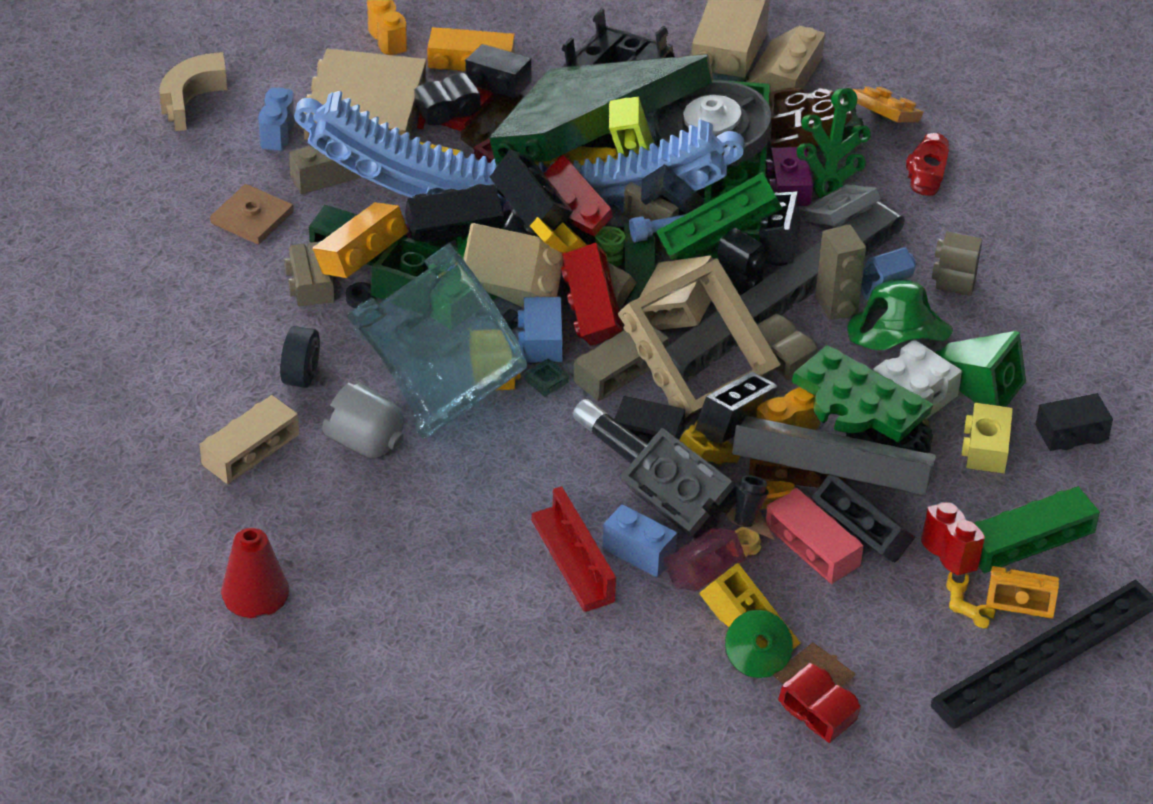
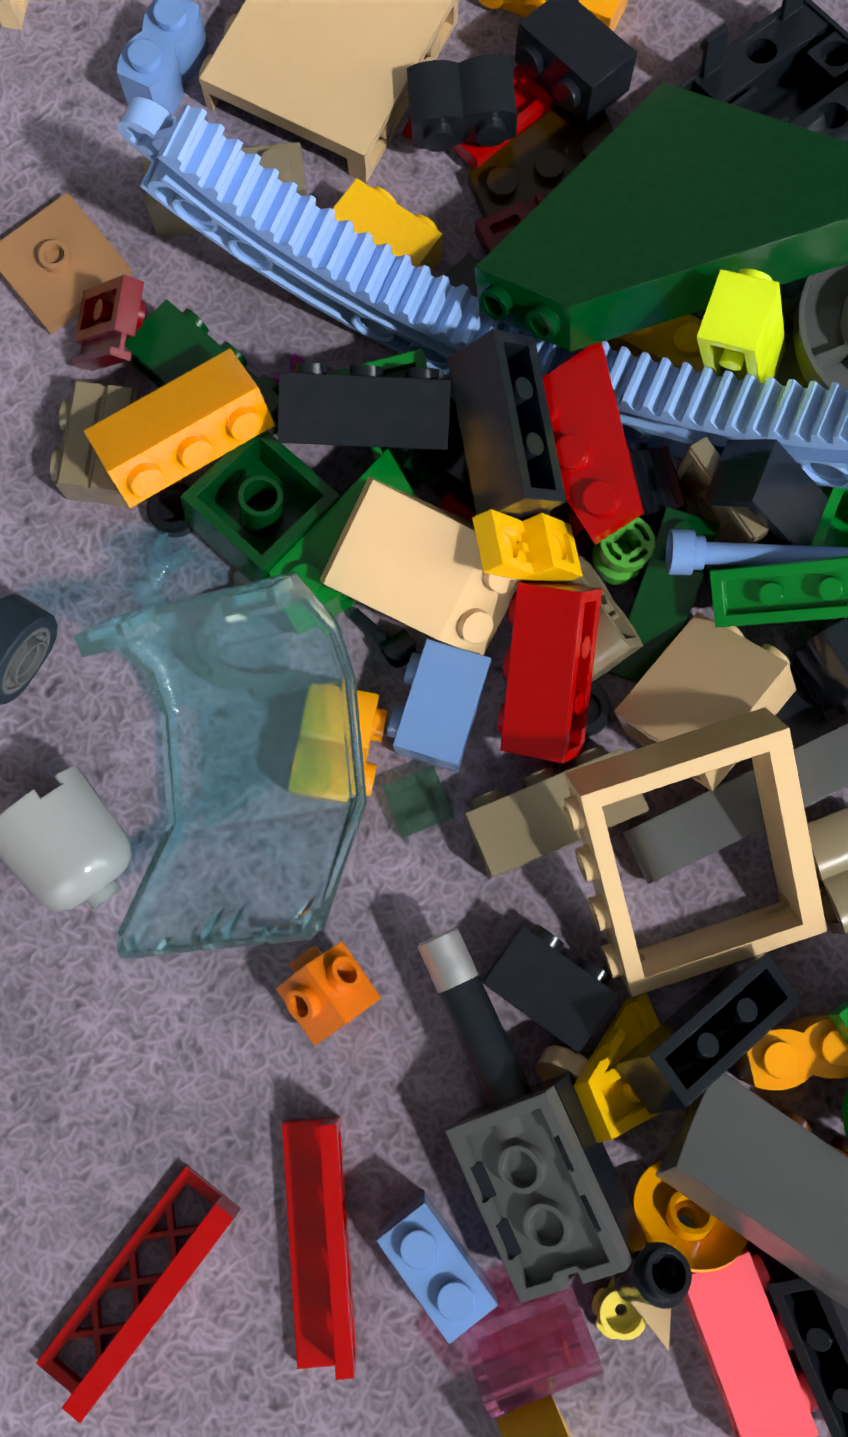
camera: 20 degrees right, 35 degrees up
(297, 219) = (106, 320): none -> dark red plate
(490, 602) = (146, 1312): none -> red fence
(532, 450) = (326, 991): none -> orange brick

